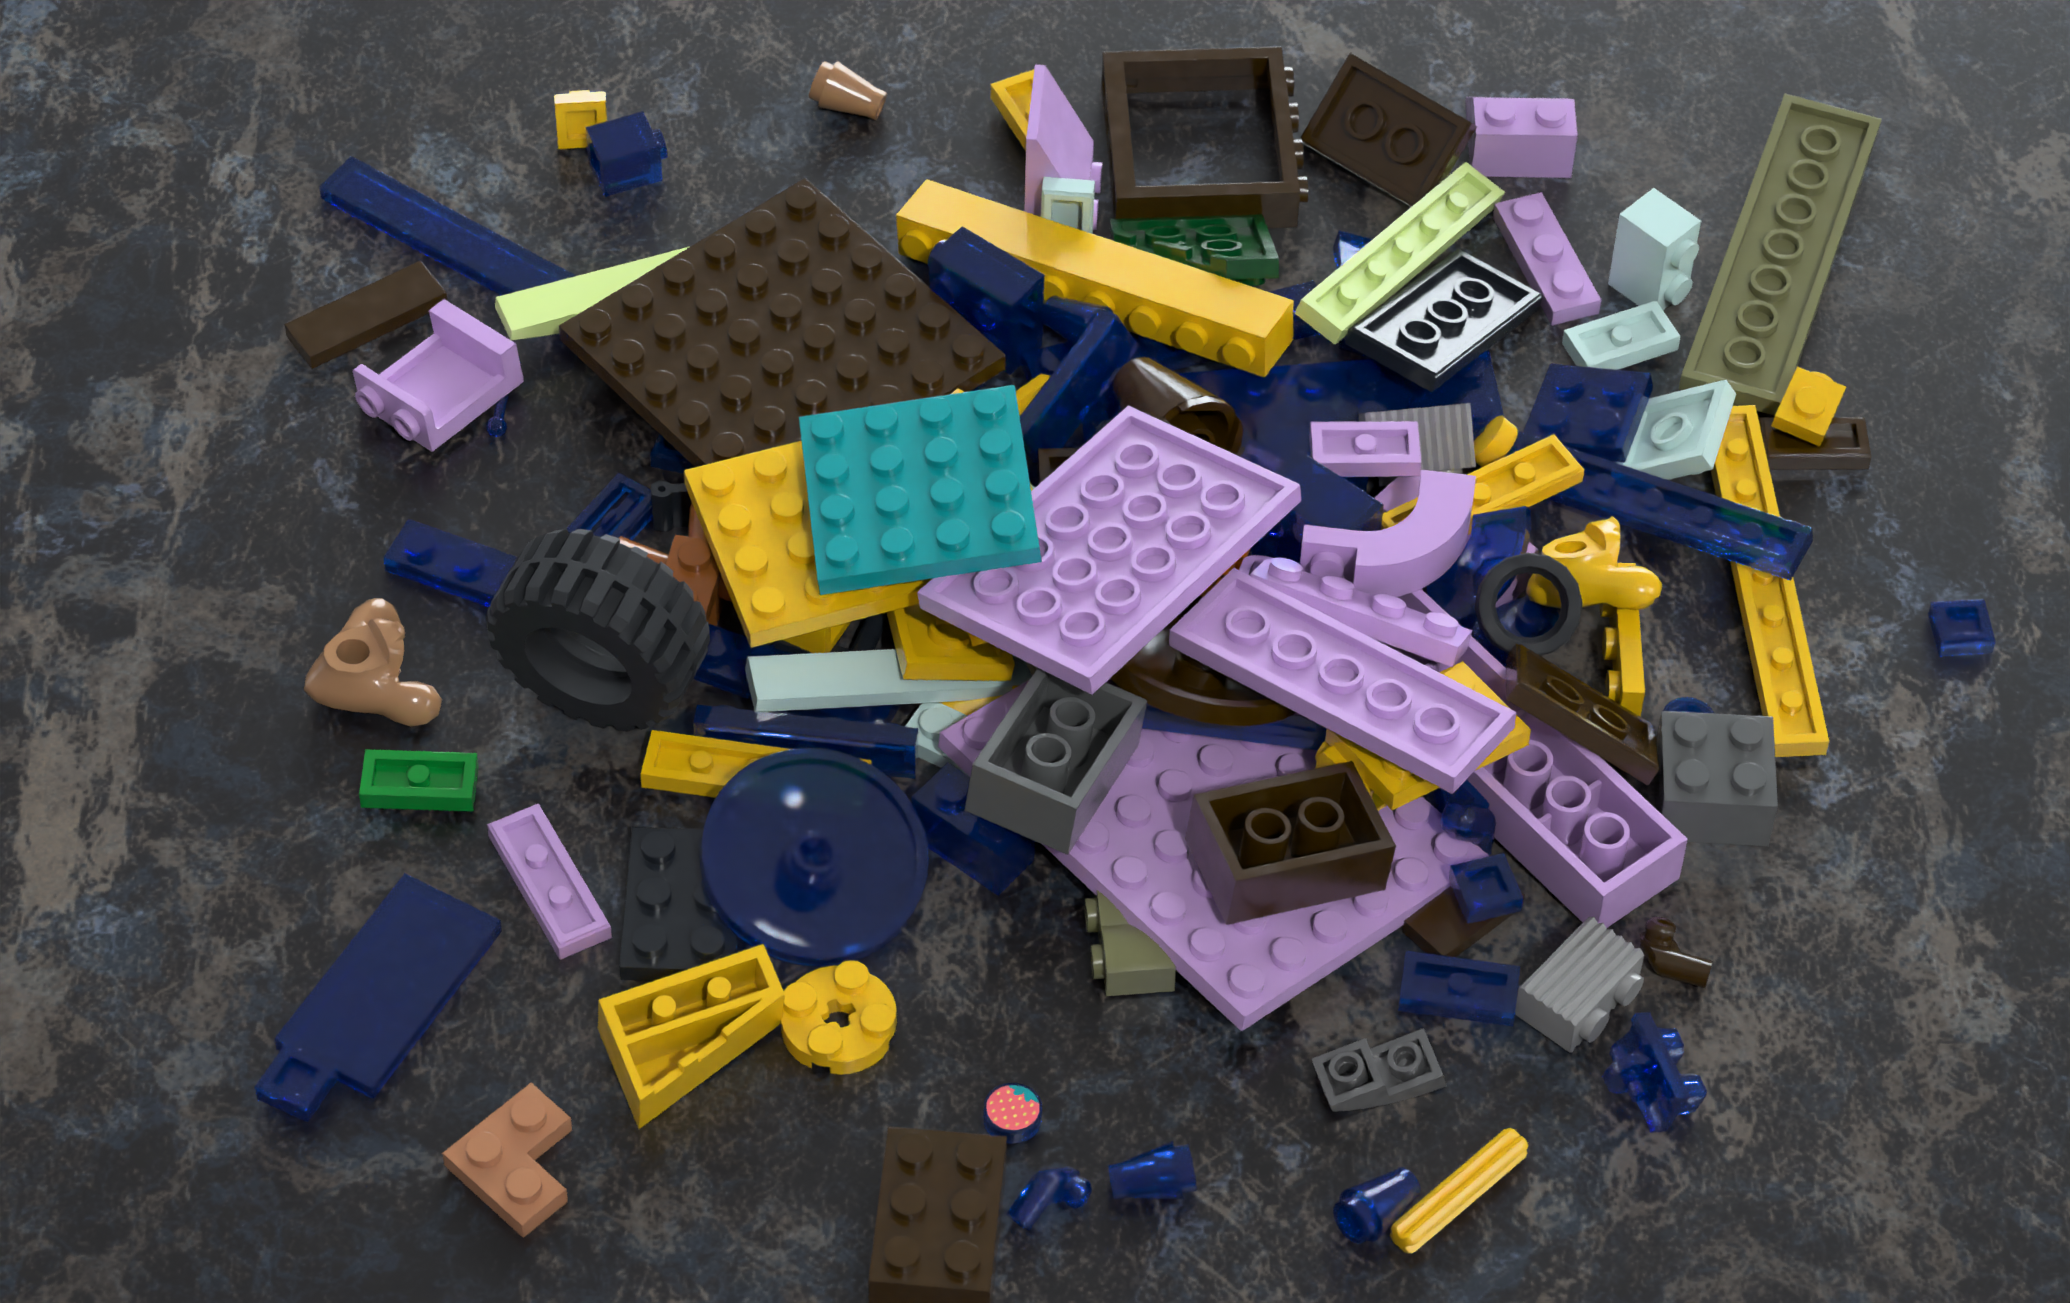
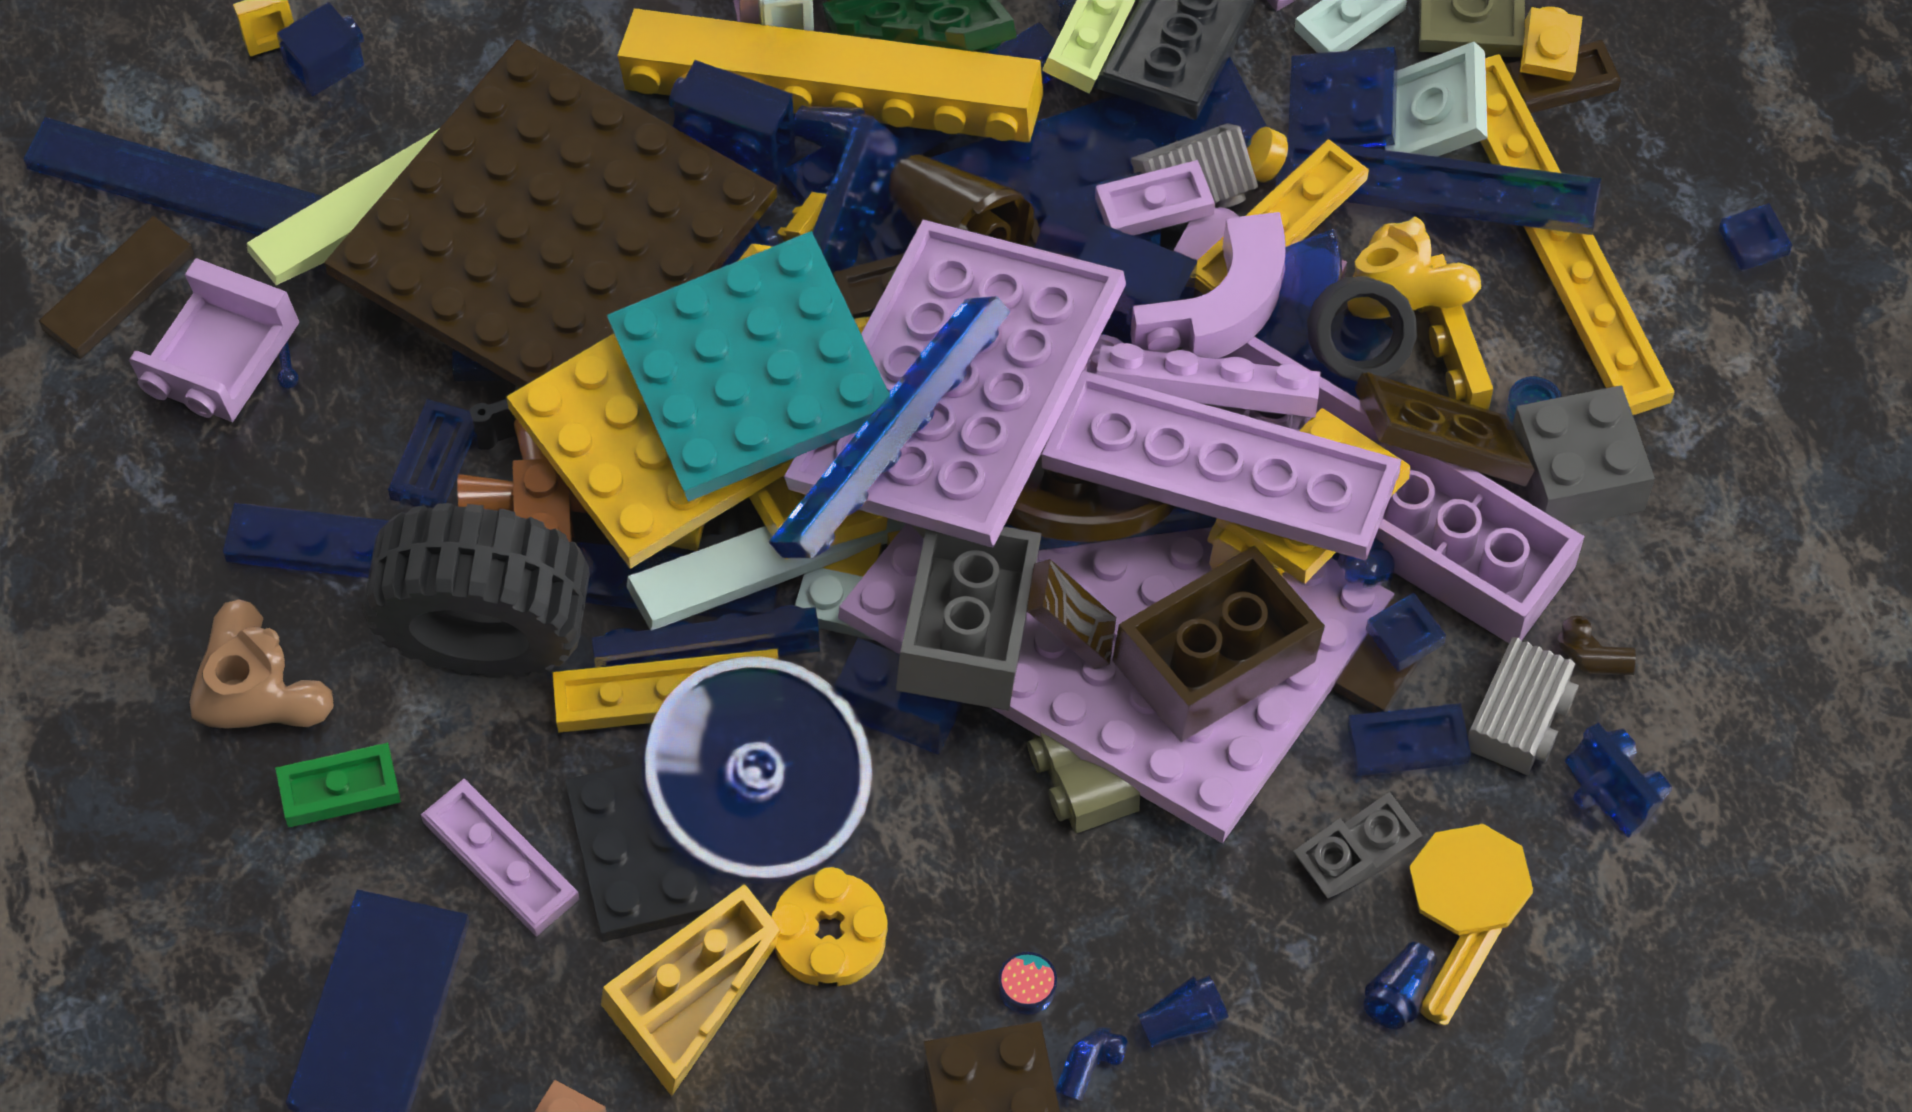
camera: 15 degrees left, 10 degrees up
(1011, 577) = (879, 441): none -> clear blue plate
(1153, 780) = (1071, 614): none -> dark brown tile
(1477, 1124) = (1471, 879): none -> yellow piece

